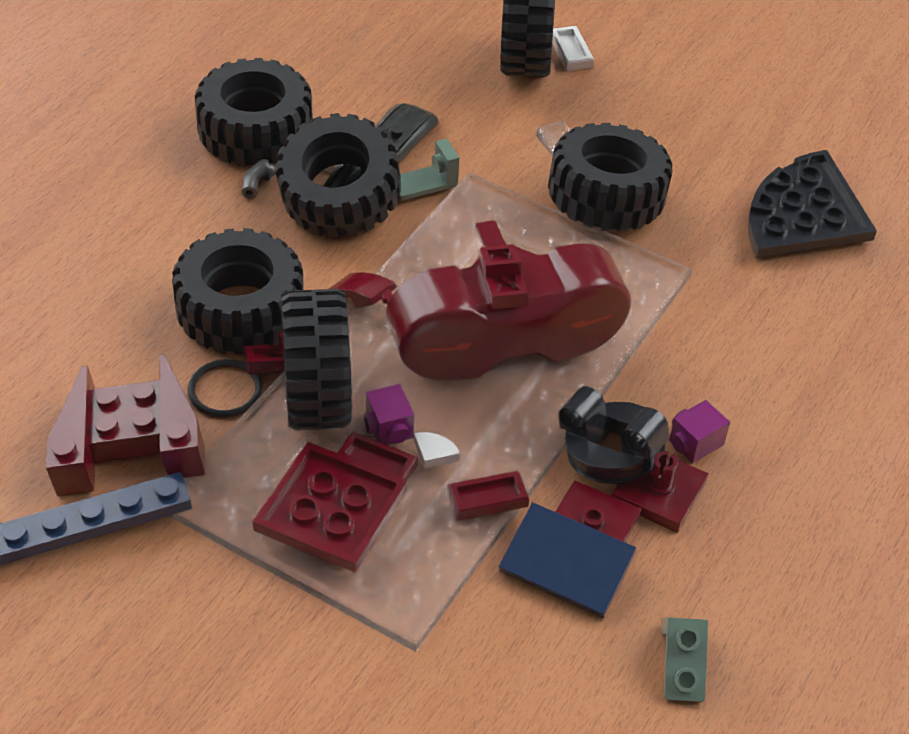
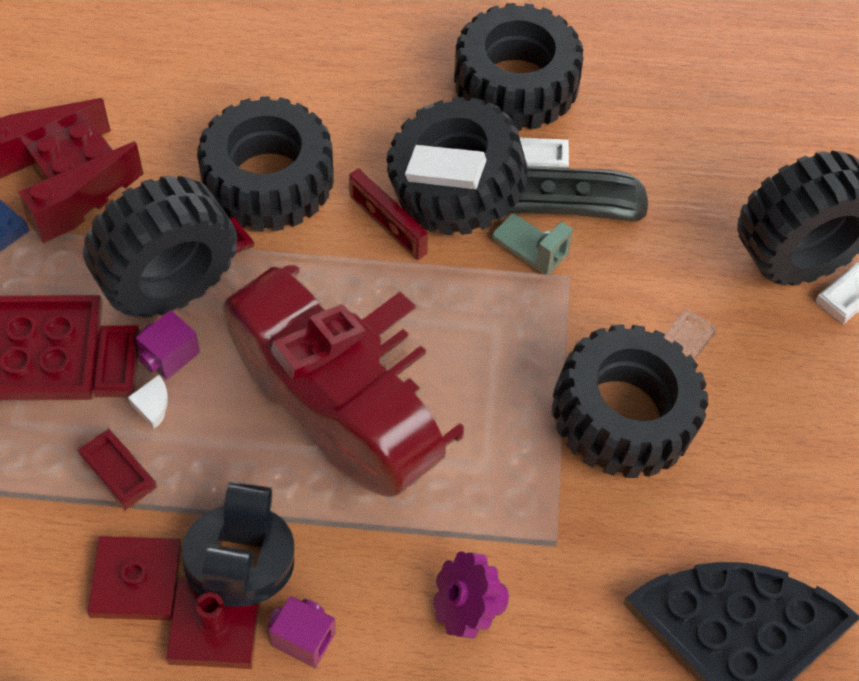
camera: 65 degrees right, 10 degrees up
(341, 243) = (388, 214): none -> dark red tile
(357, 166) = (445, 167): none -> white tile
(364, 288) = (329, 255): dark red slope -> none
(567, 559) = (70, 571): dark blue tile -> none
(724, 305) = (468, 595): none -> magenta plant

